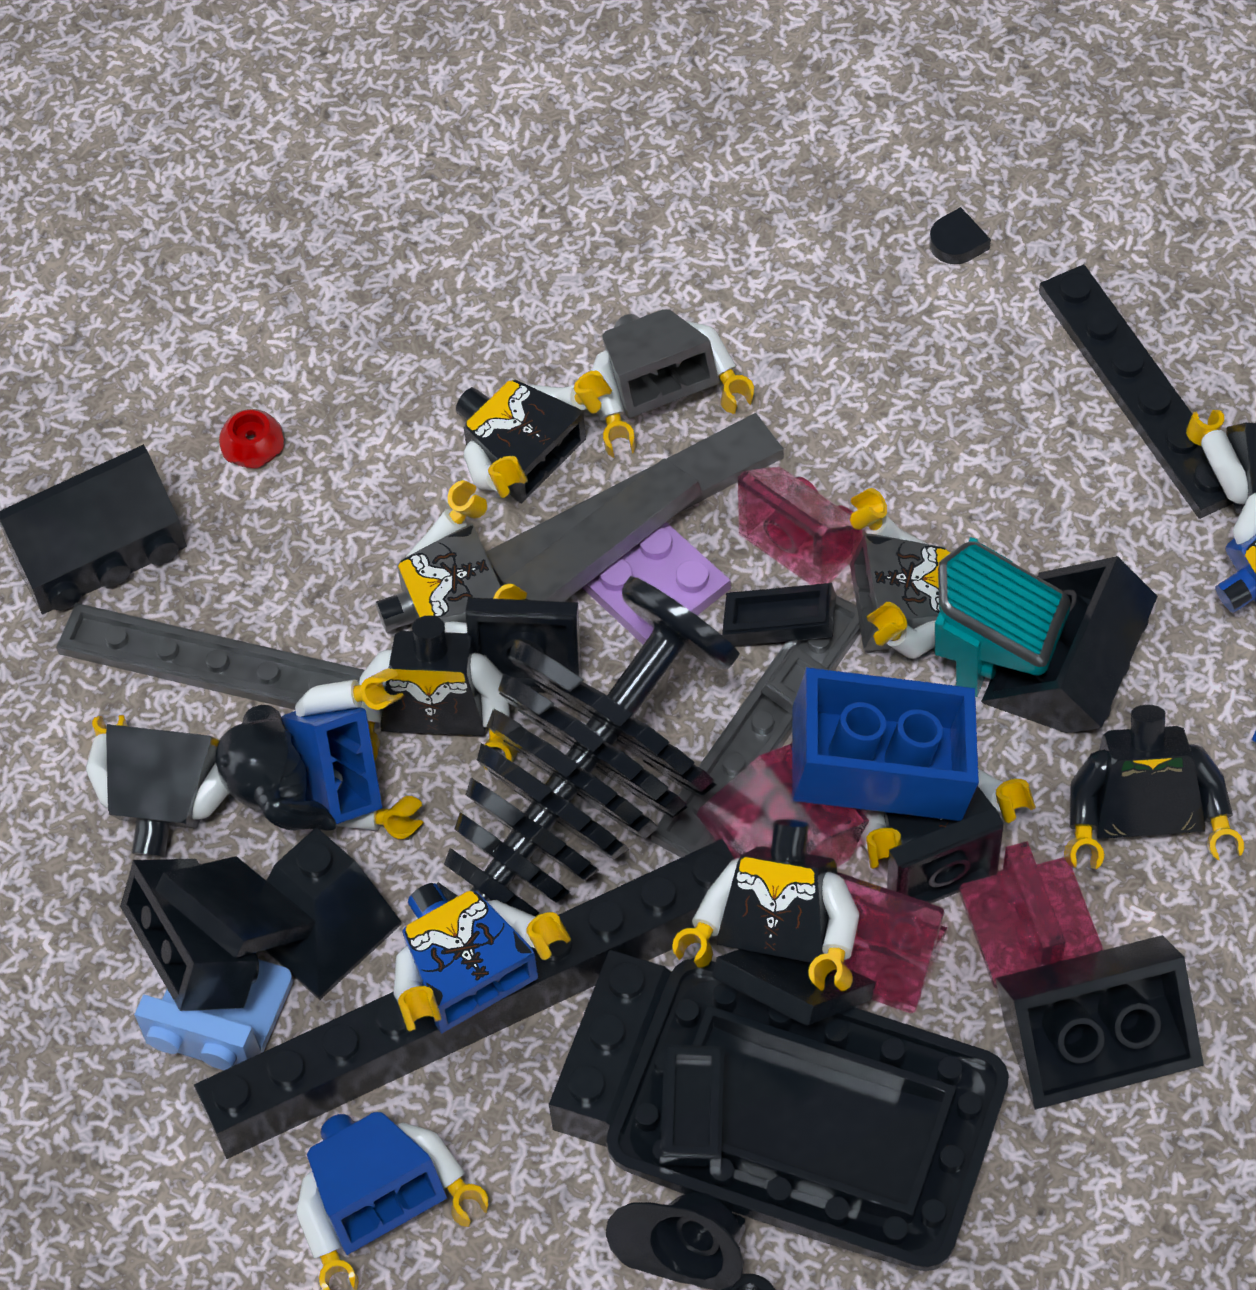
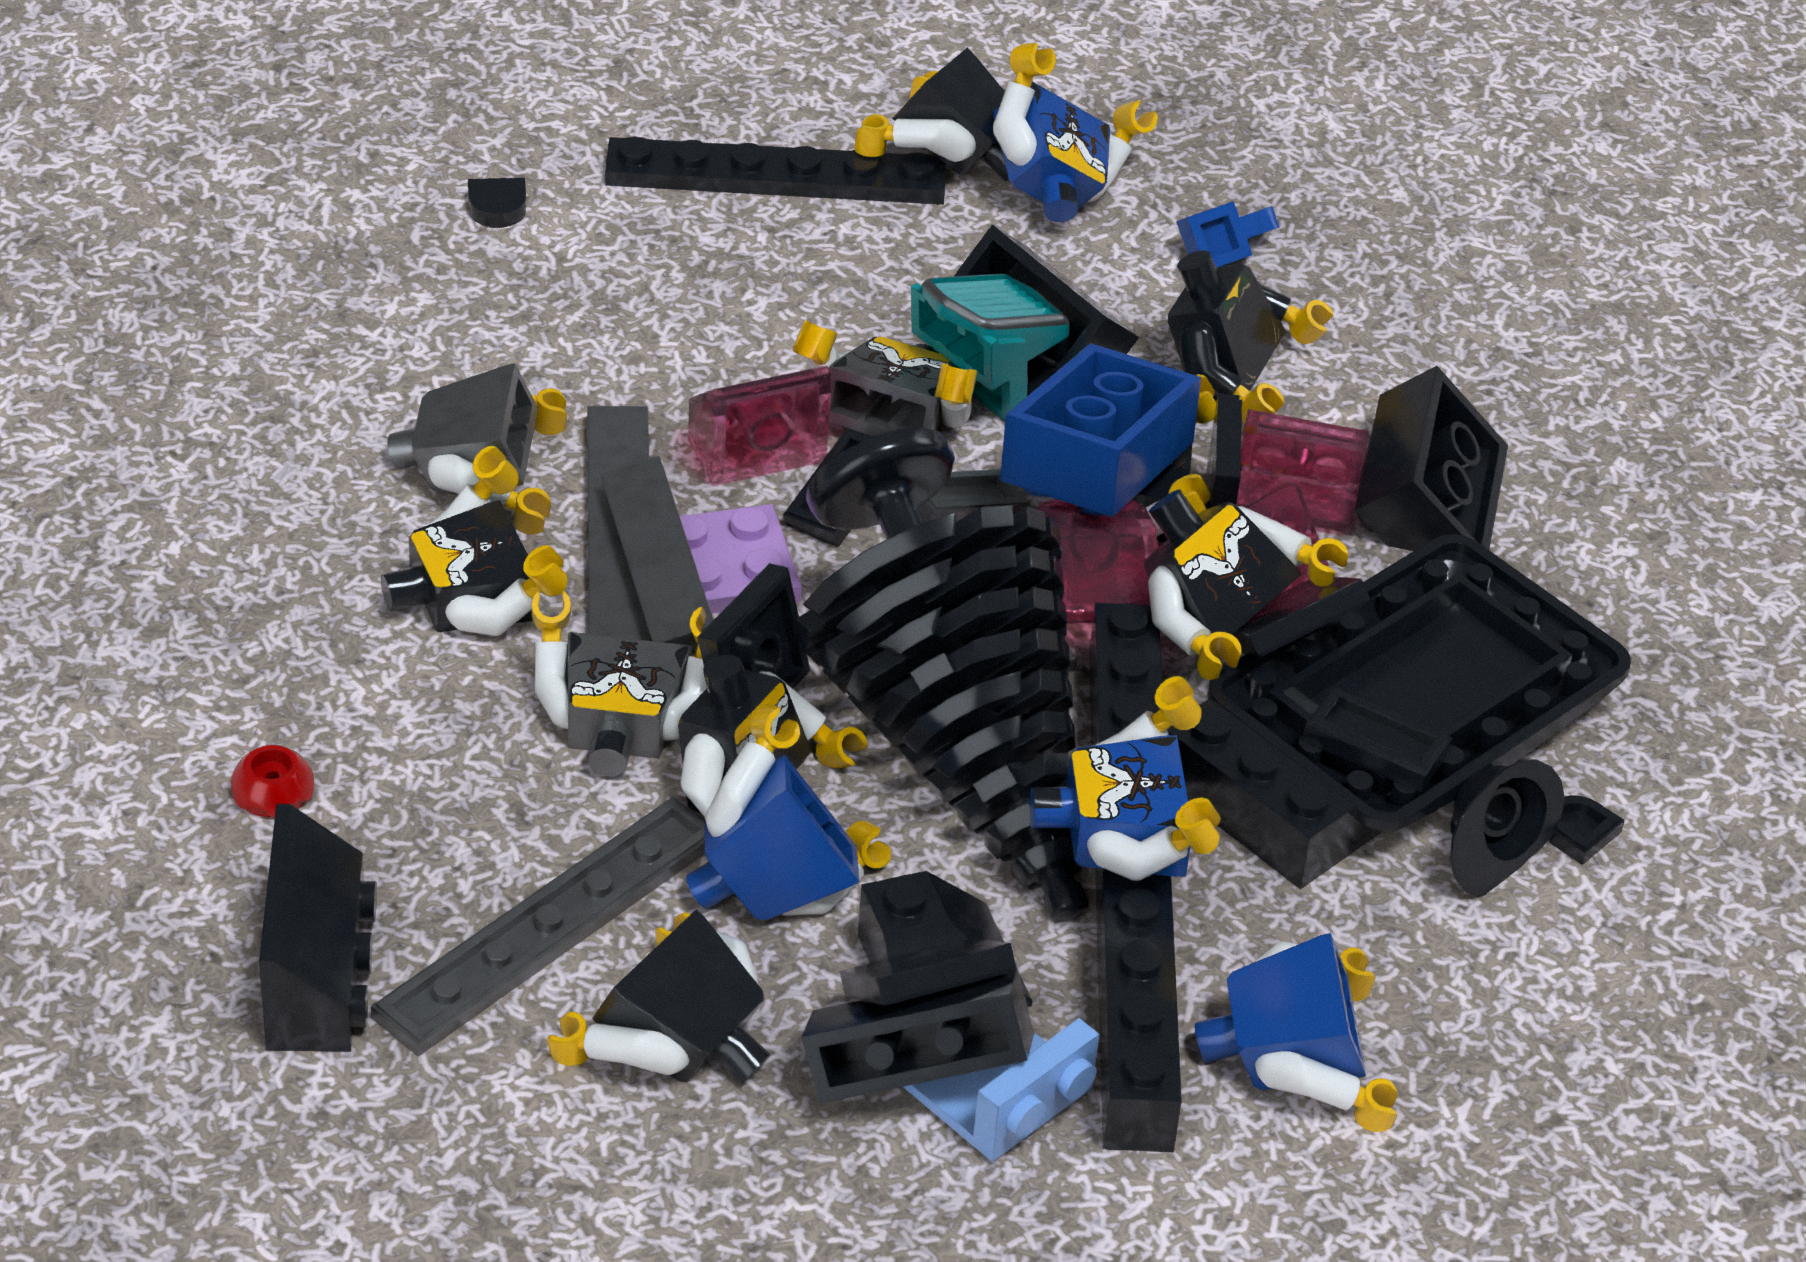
camera: 70 degrees left, 15 degrees down
(267, 772) = (757, 888): black hair -> none

